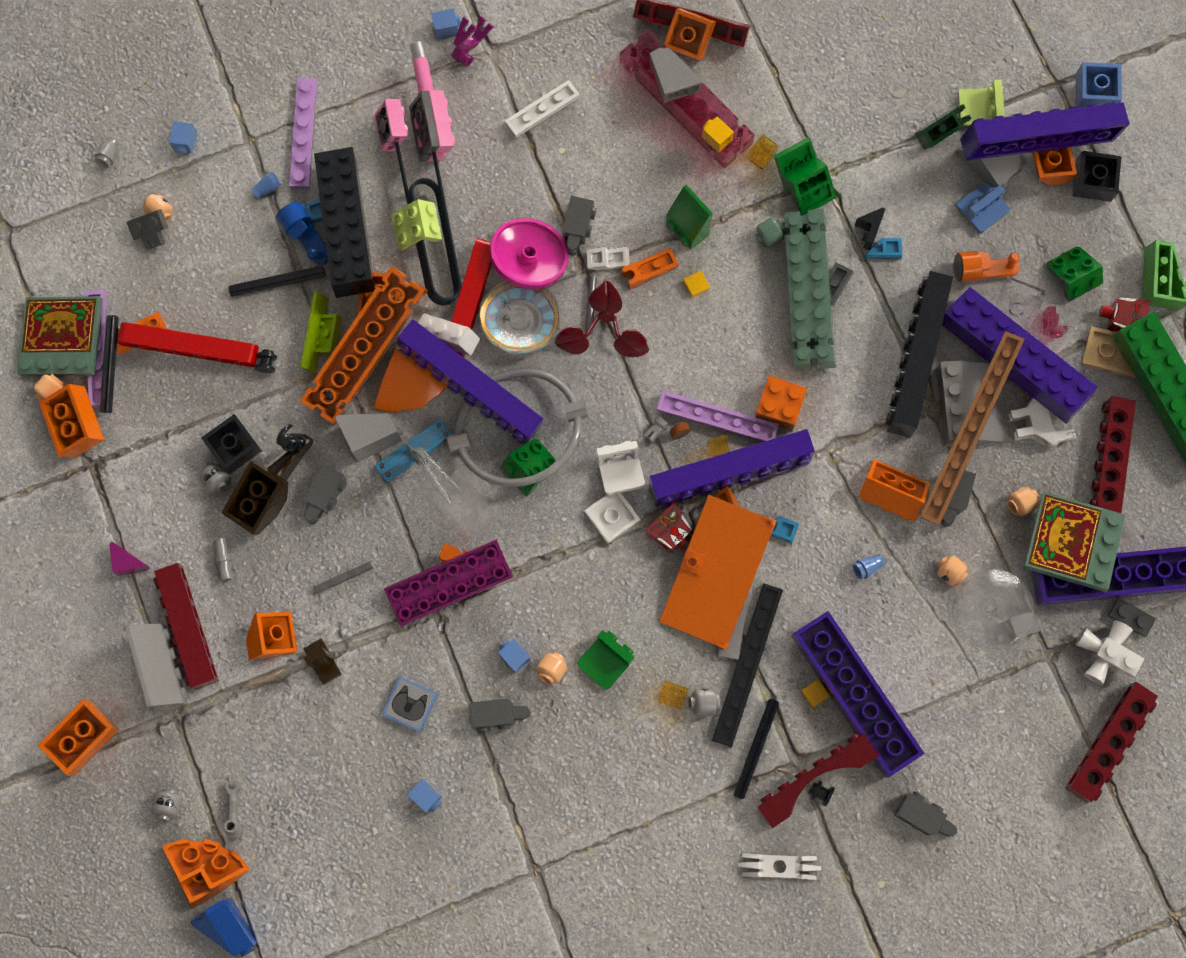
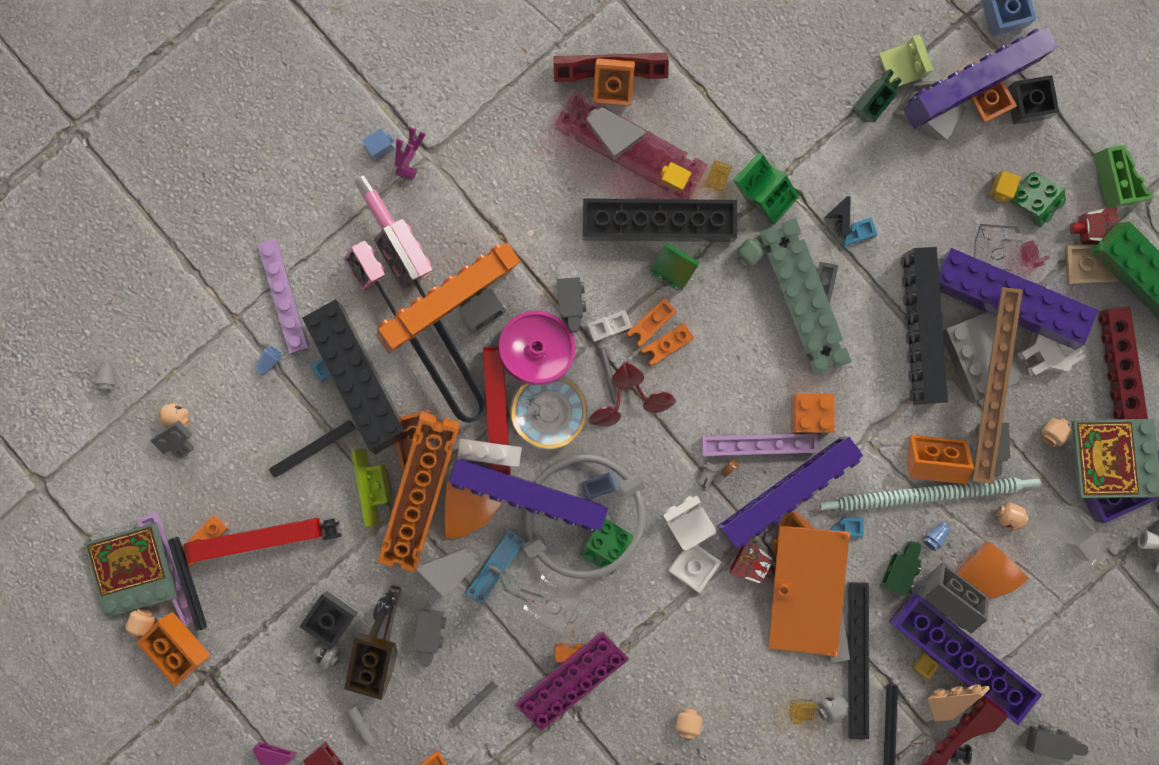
camera: 25 degrees left, 10 degrees up
(183, 137) = (171, 339): medium blue brick -> none
(298, 225) = (312, 390): blue piece -> none
(416, 223) = (423, 355): yellowish green bracket -> none
(458, 174) = (443, 300): none -> orange brick
(488, 201) = (481, 309): none -> dark grey brick
(513, 655) = (651, 724): medium blue brick -> none
(542, 109) = (499, 199): white plate -> none
(546, 402) = (600, 485): none -> sand blue tile
(606, 660) = (734, 700): green bracket -> none
(658, 293) = (668, 344): none -> orange plate
(674, 166) = (659, 220): none -> black brick
(696, 284) = (698, 323): yellow tile -> none
(717, 446) = (770, 474): clear yellow panel -> none
(821, 586) = (903, 569): none -> dark green hinge
(829, 735) = (951, 703): none -> light nougat slope
(866, 628) = (956, 598): none -> dark grey brick
(891, 525) = (930, 494): none -> light aqua hose
(909, 622) = (992, 571): none -> orange brick
(978, 265) = (948, 223): orange piece -> none
(983, 206) = (936, 161): medium blue bracket -> none
(1044, 249) = (1004, 186): none -> yellow brick

